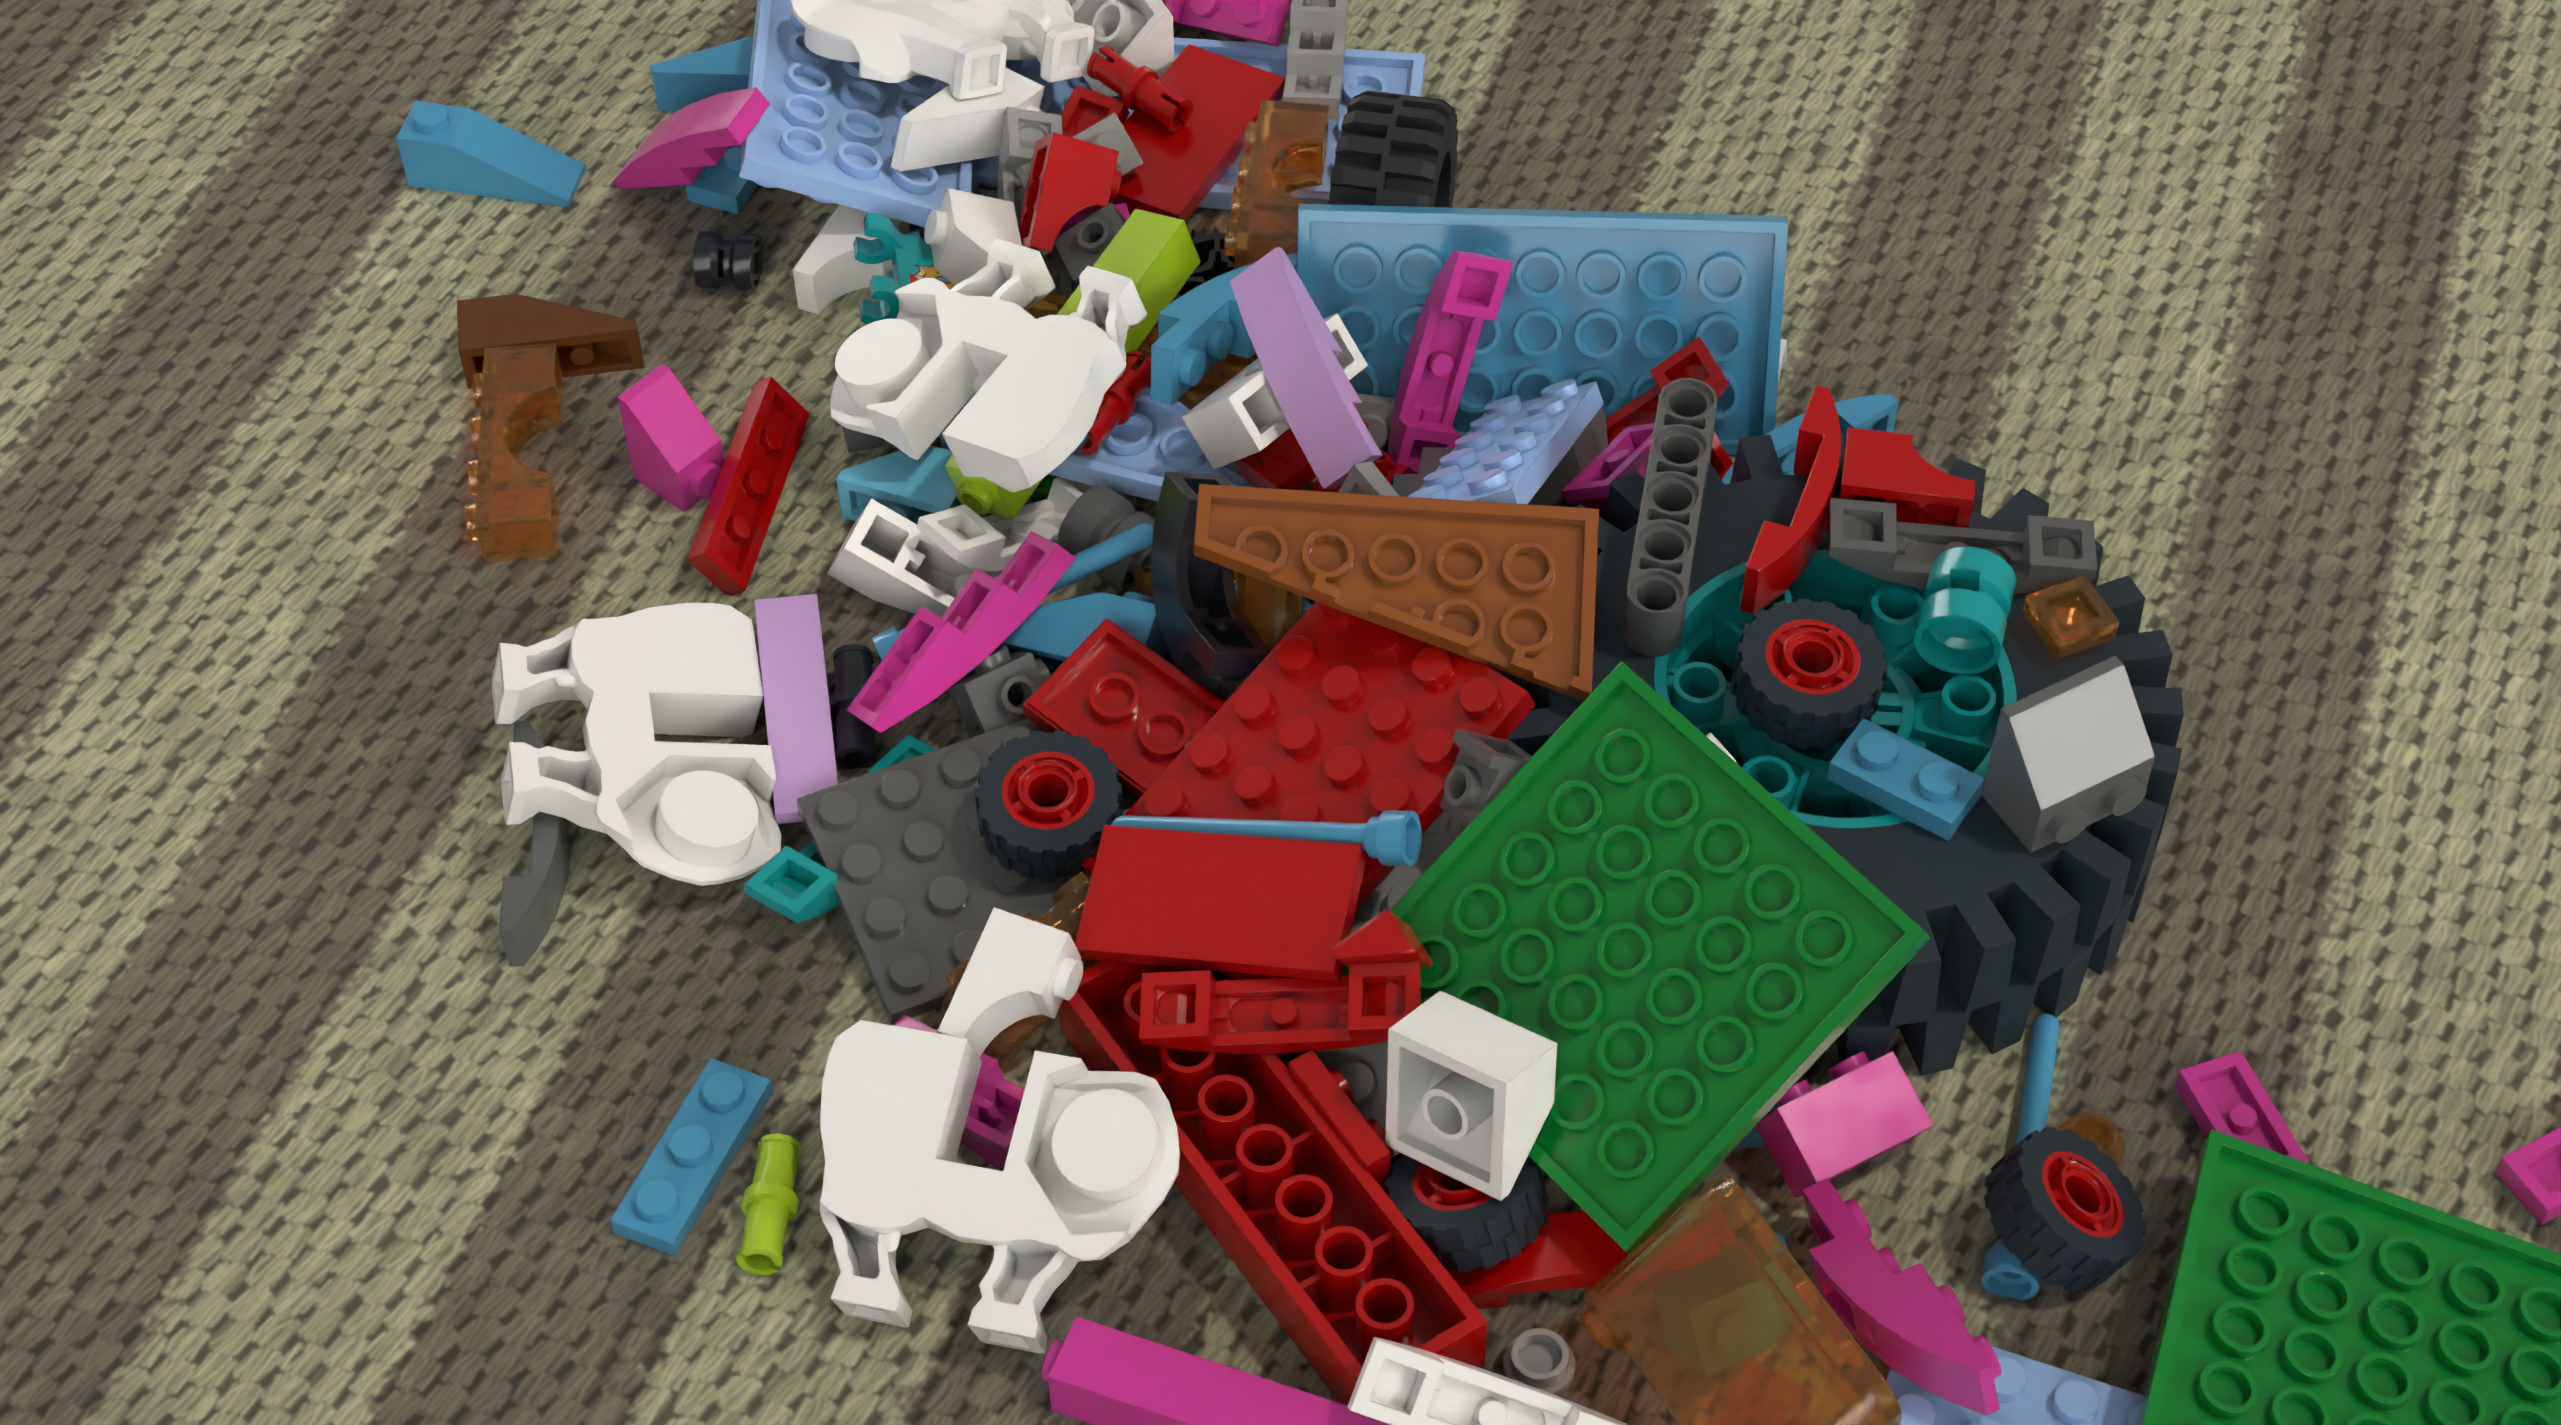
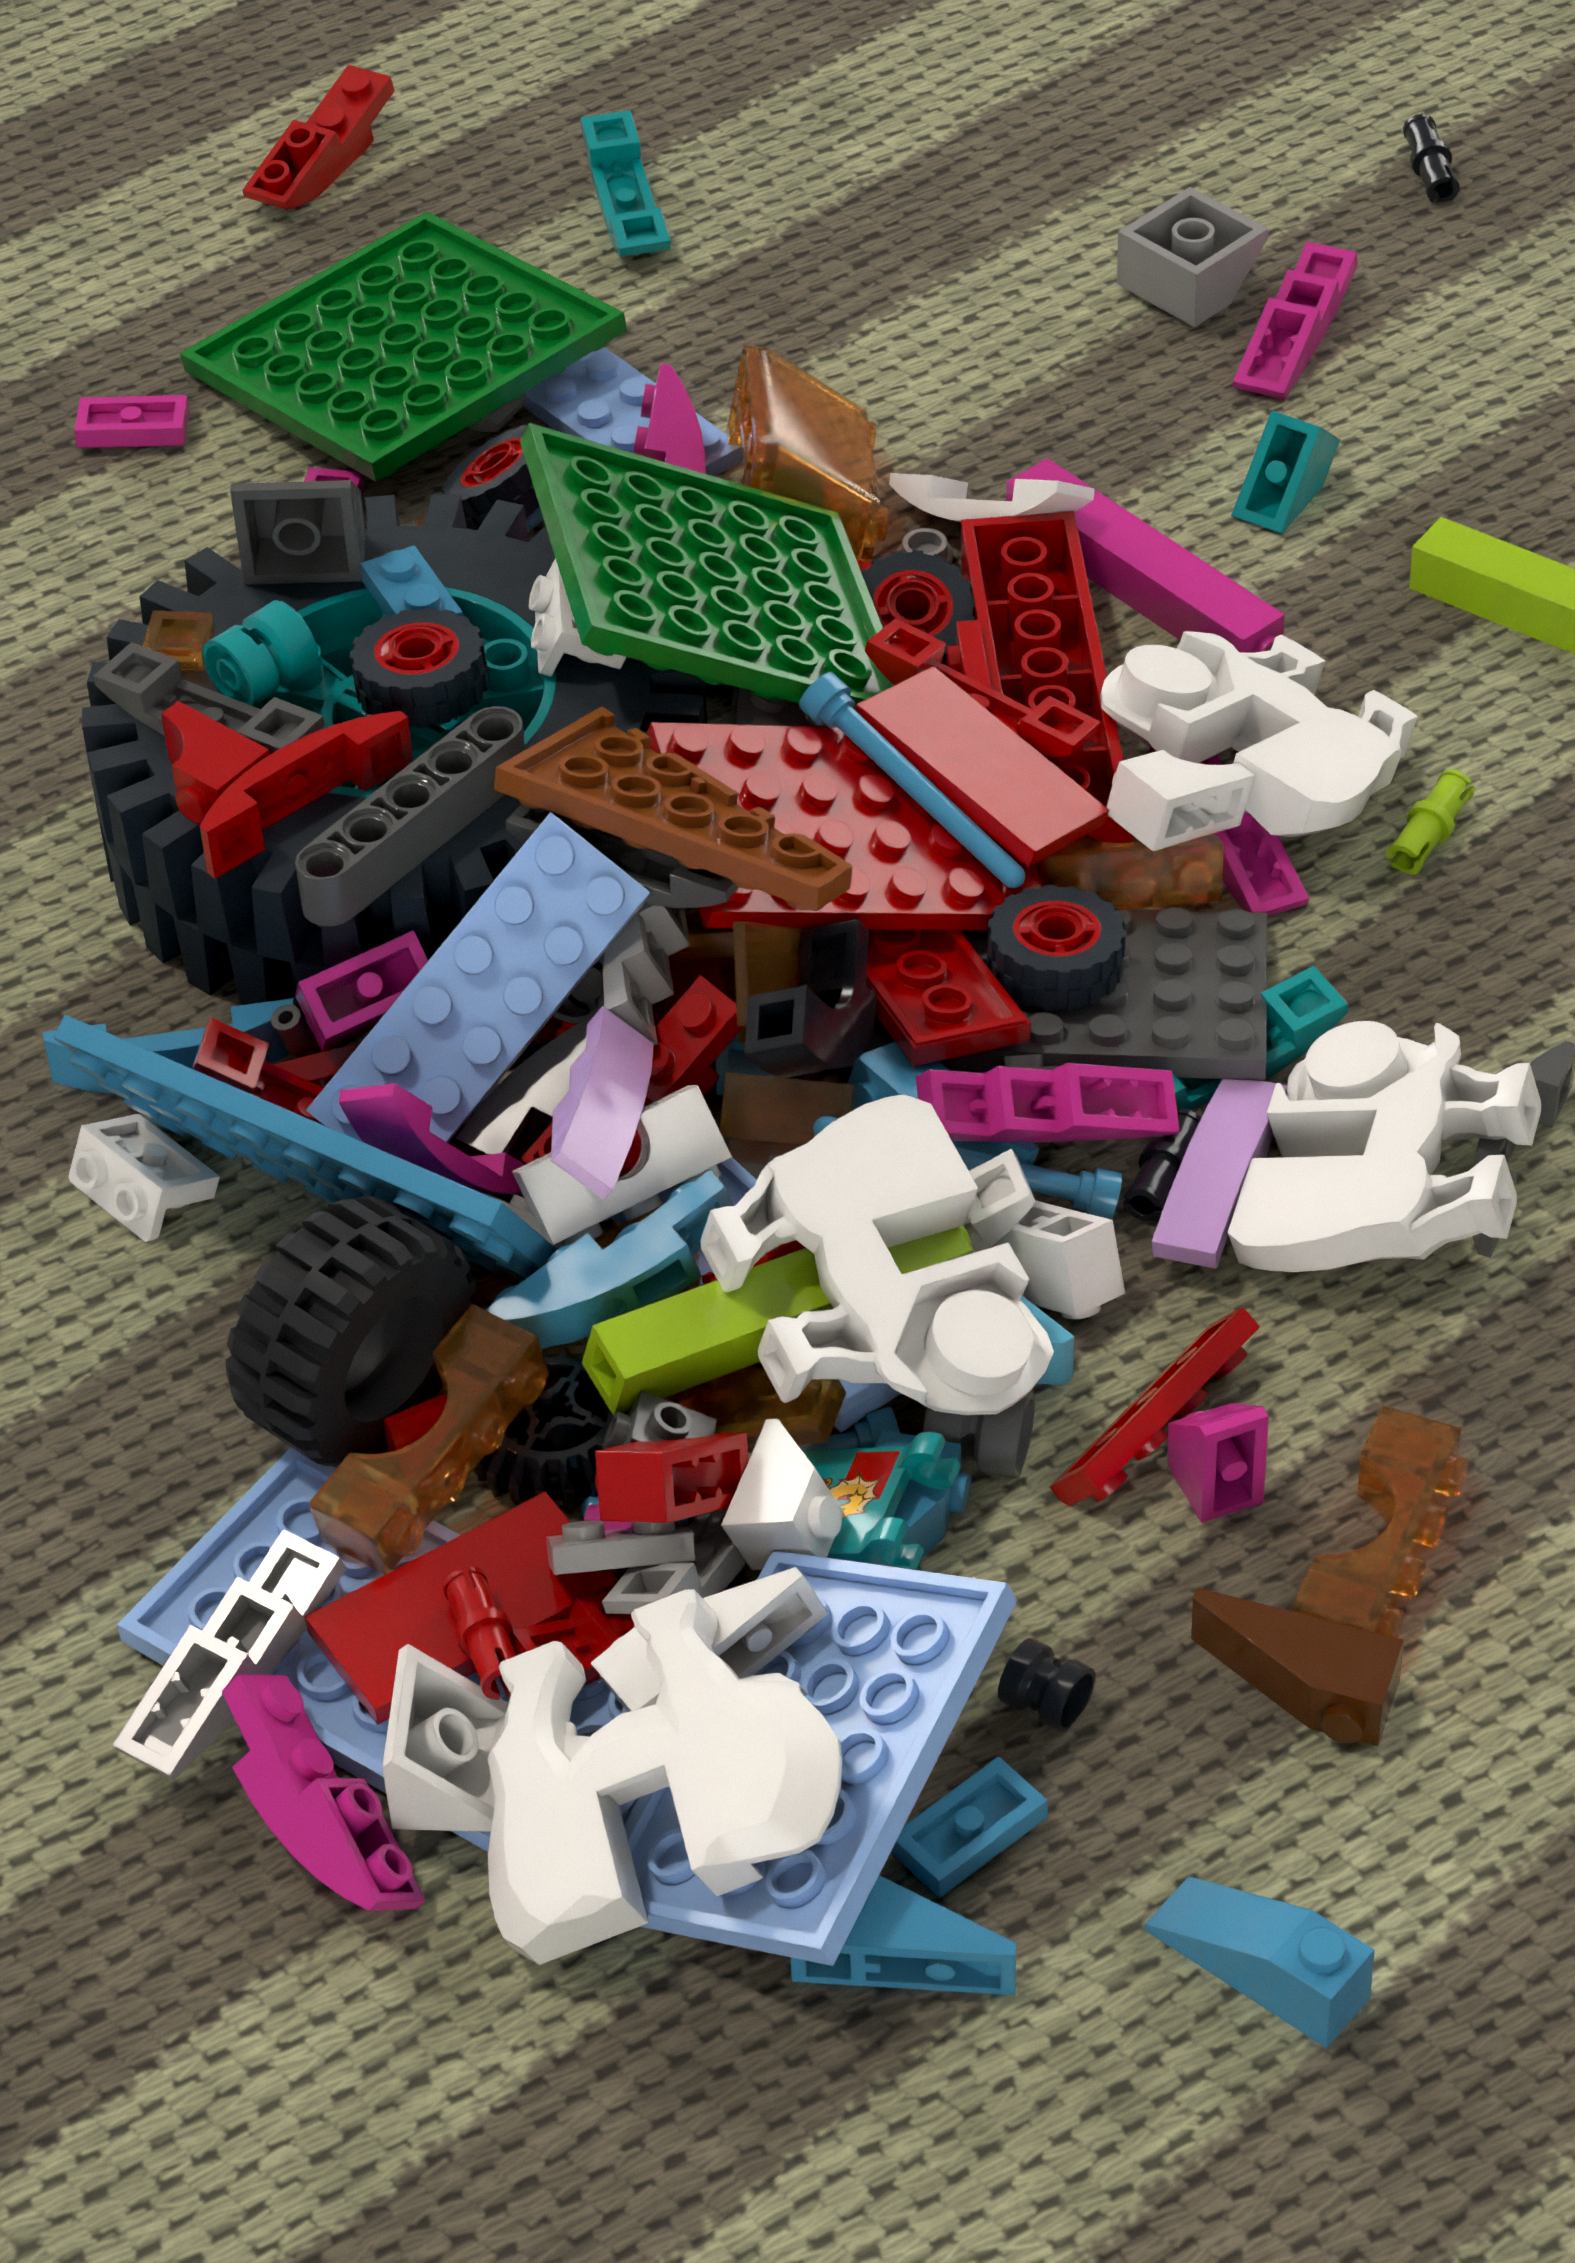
camera: 150 degrees left, 5 degrees down
(692, 139) = (1036, 1760): dark pink slope -> none
(692, 1157) = (1475, 884): dark azure plate -> none
(1382, 941) = (886, 657): red slope -> none
(1467, 1092) = (881, 570): white slope -> none
(1478, 775) = (737, 696): dark grey brick -> none

